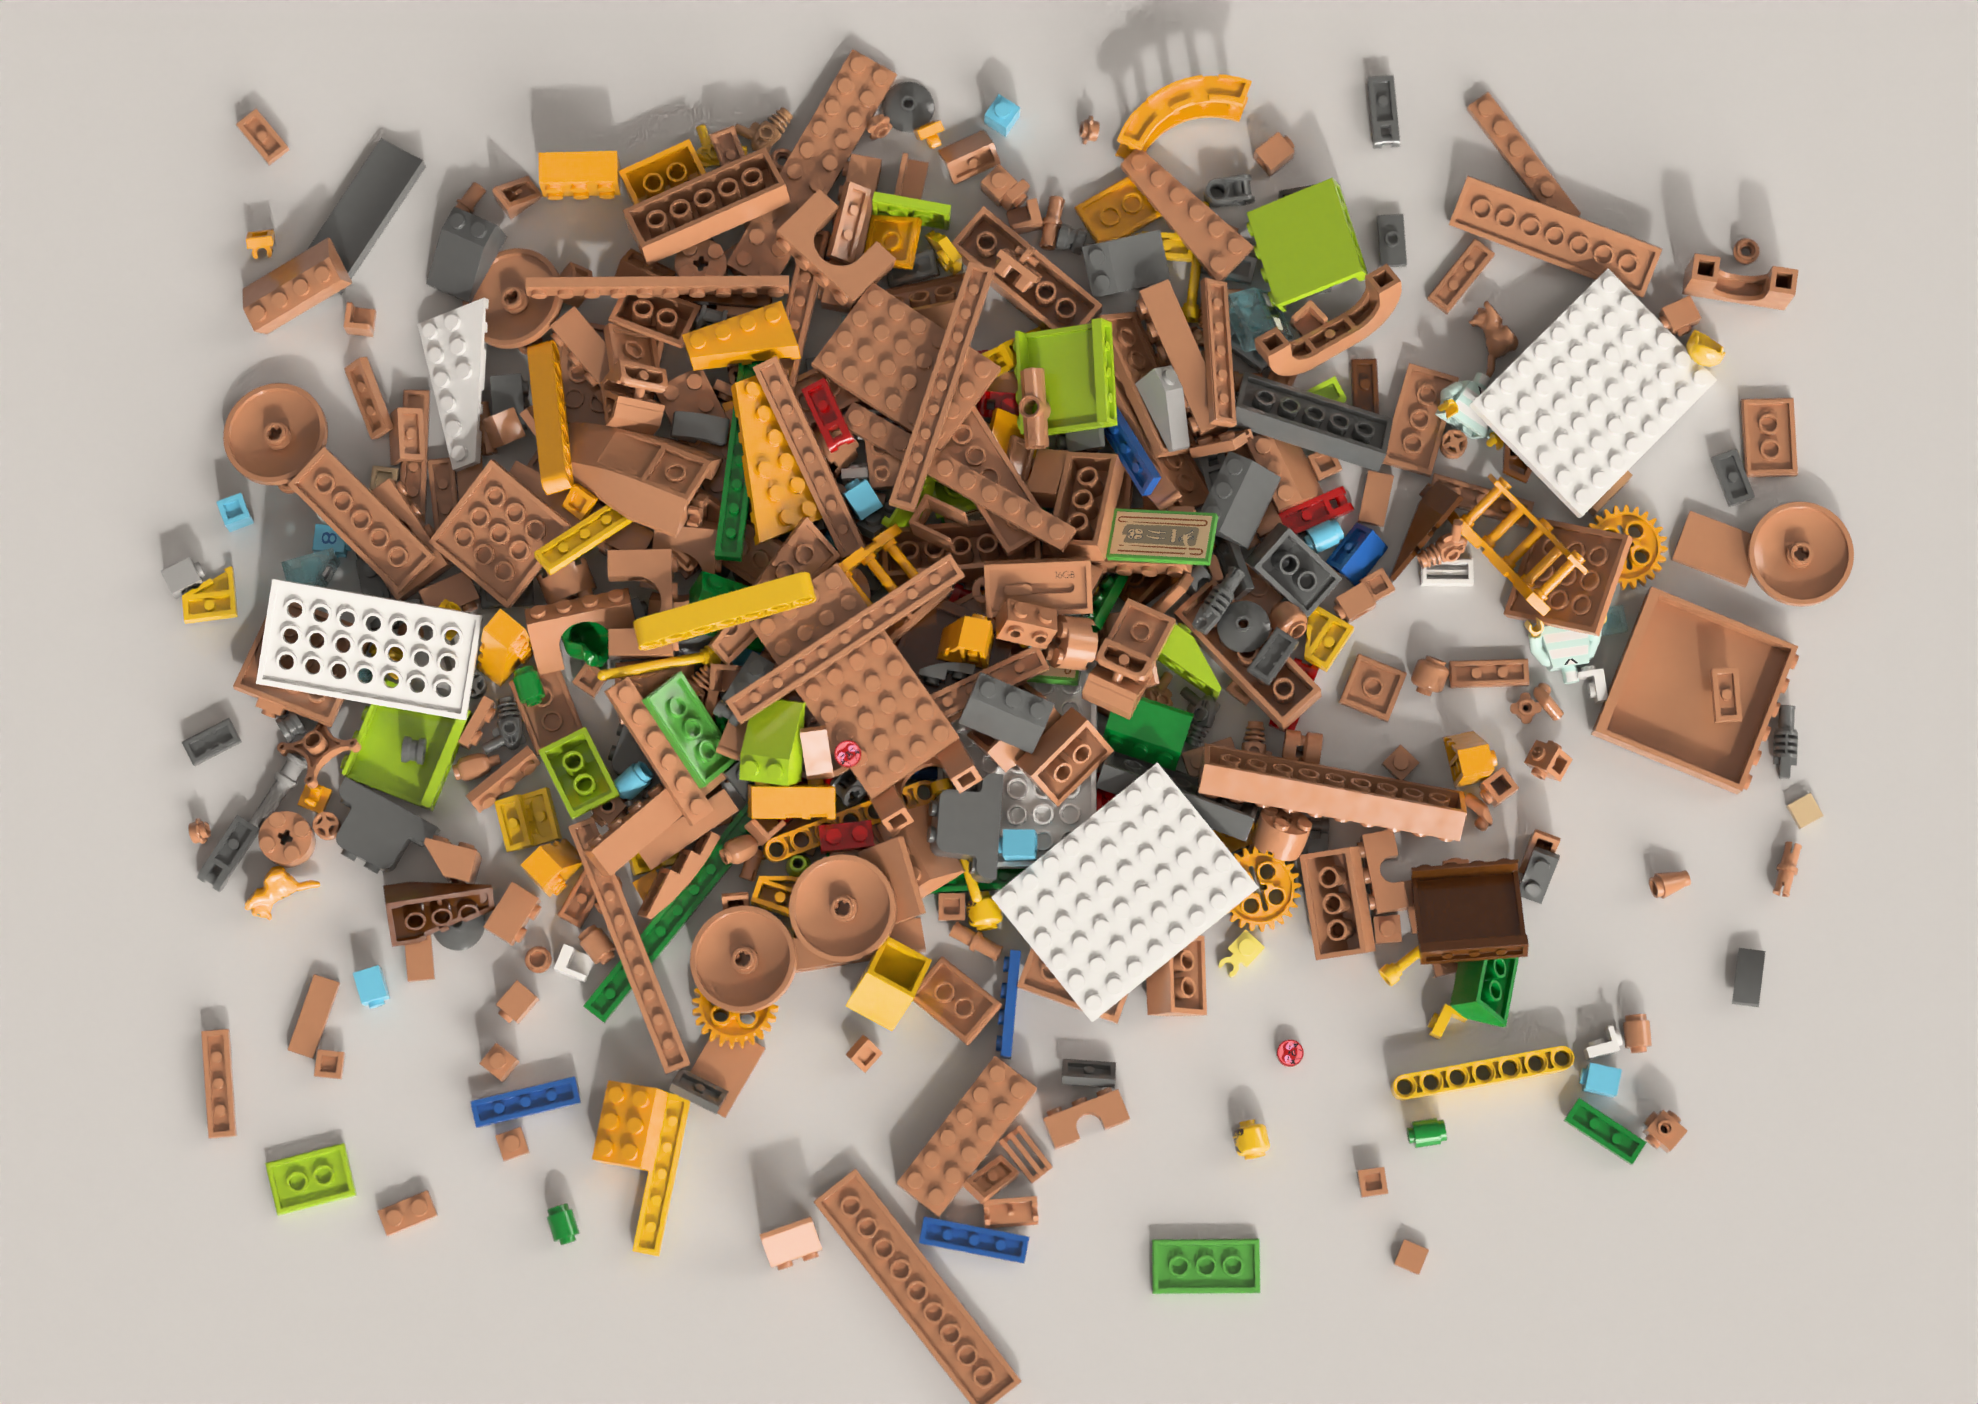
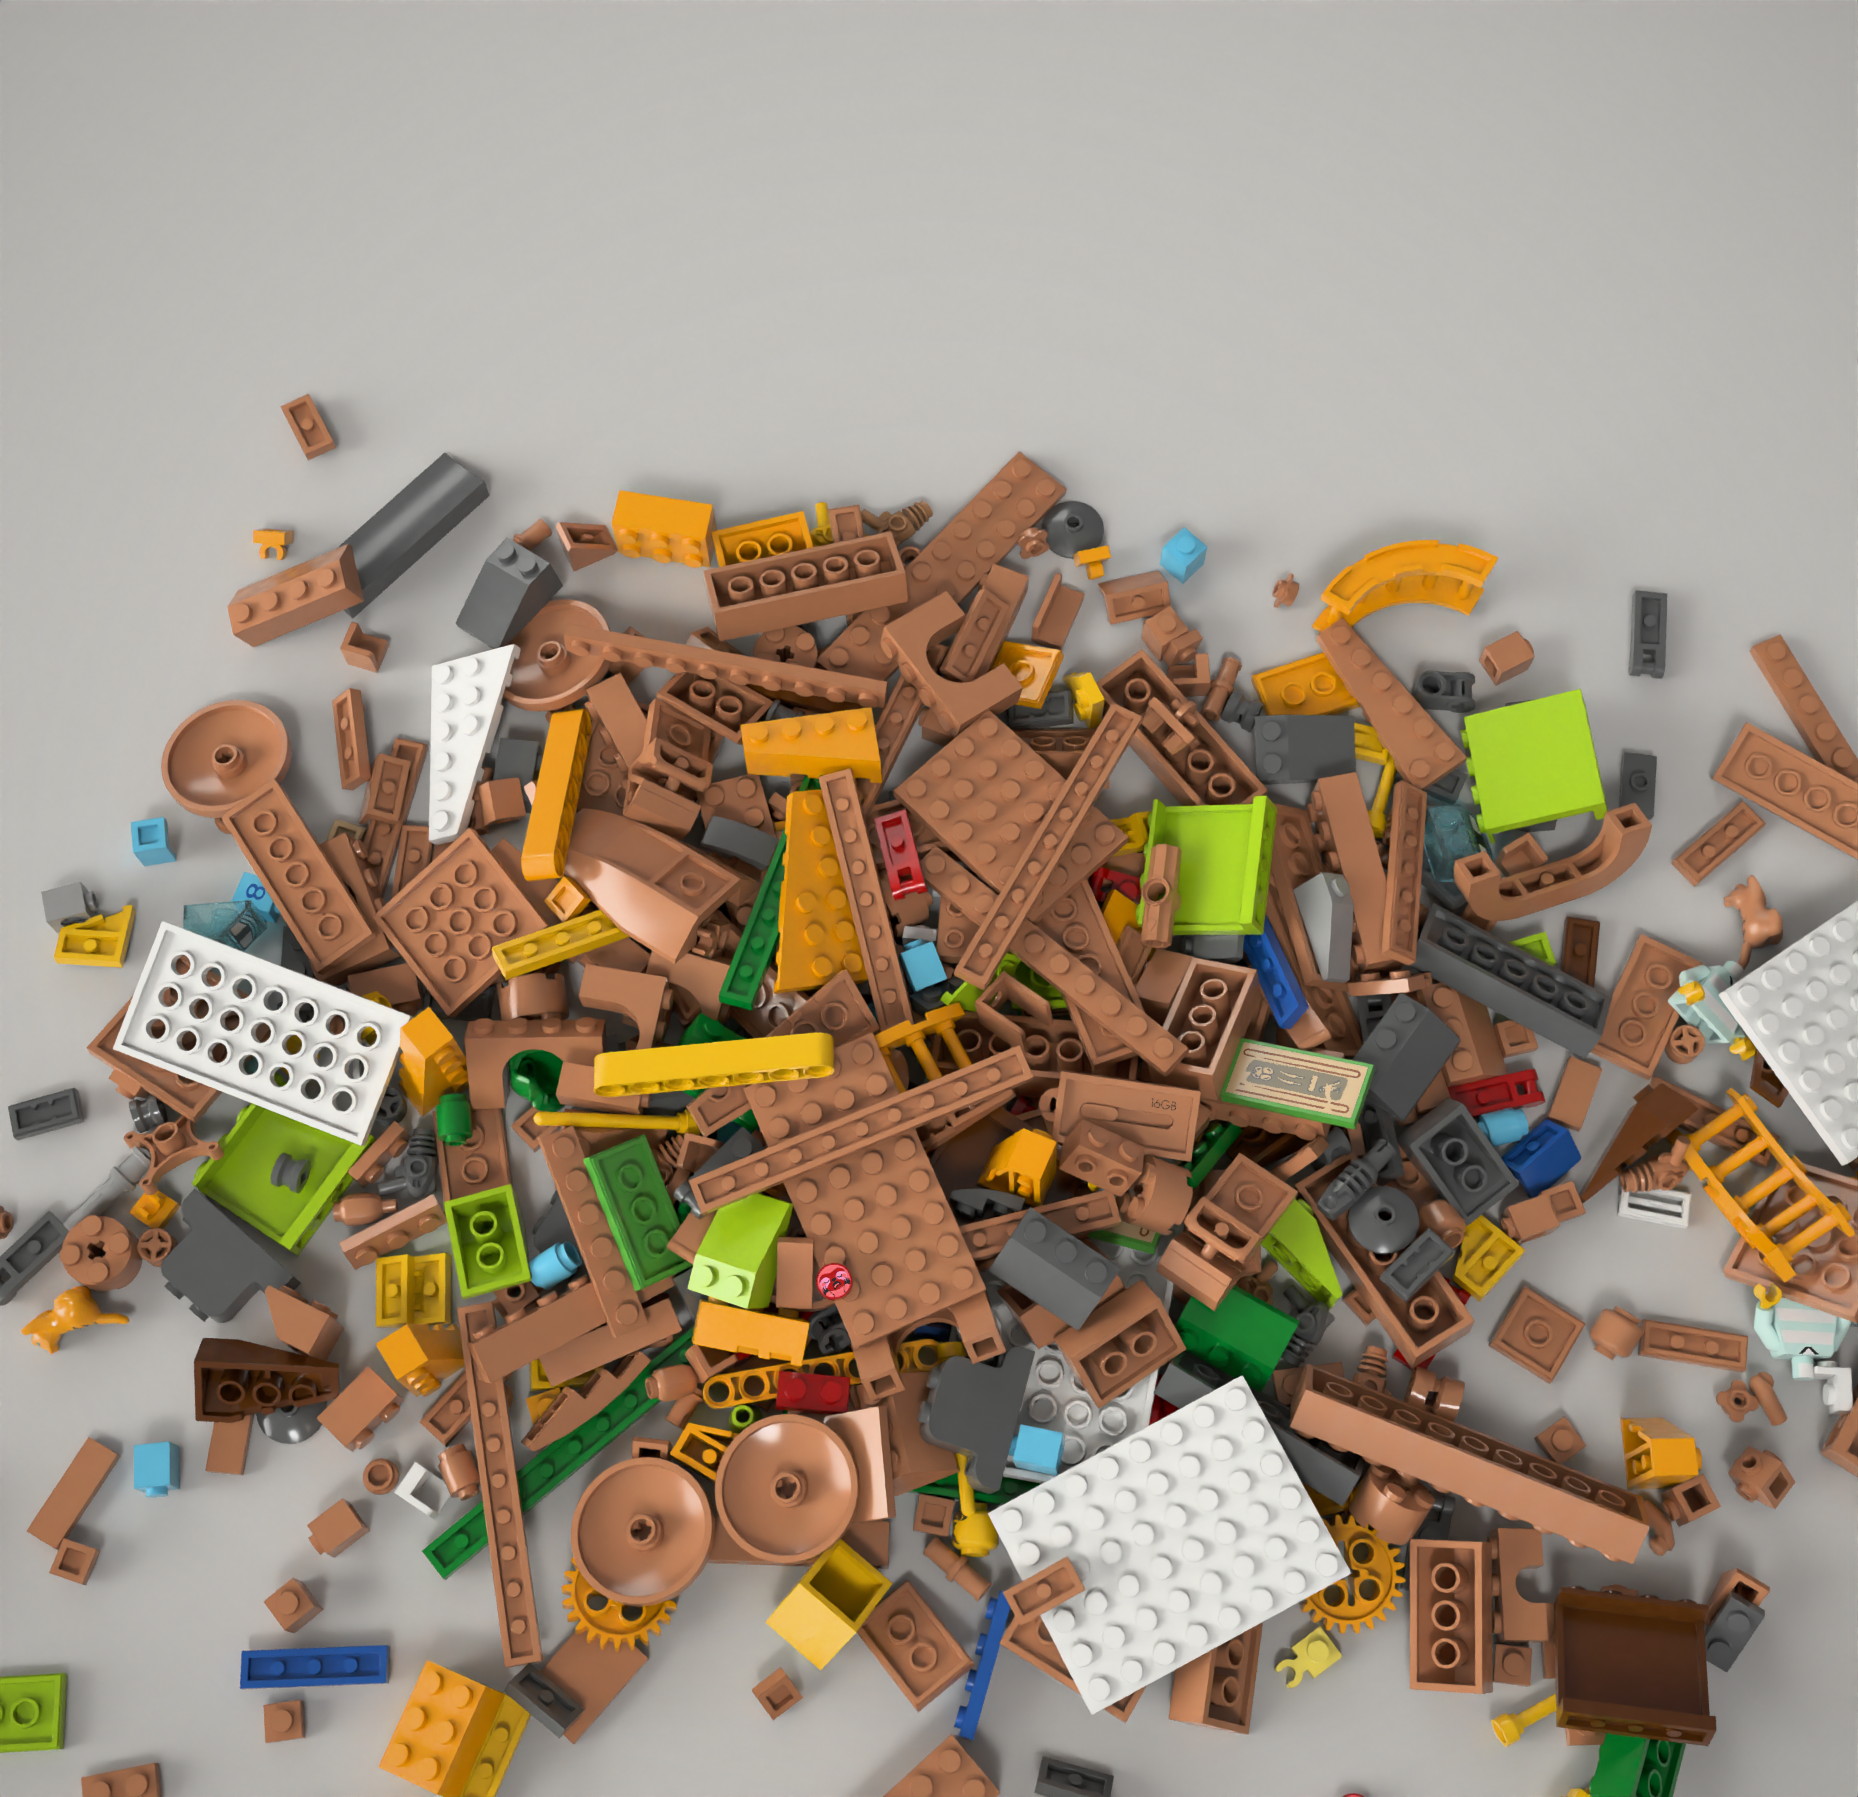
camera: 15 degrees right, 10 degrees down
(931, 213) = (1078, 646): lime tile -> none
(1042, 943) = (1044, 1591): none -> nougat plate

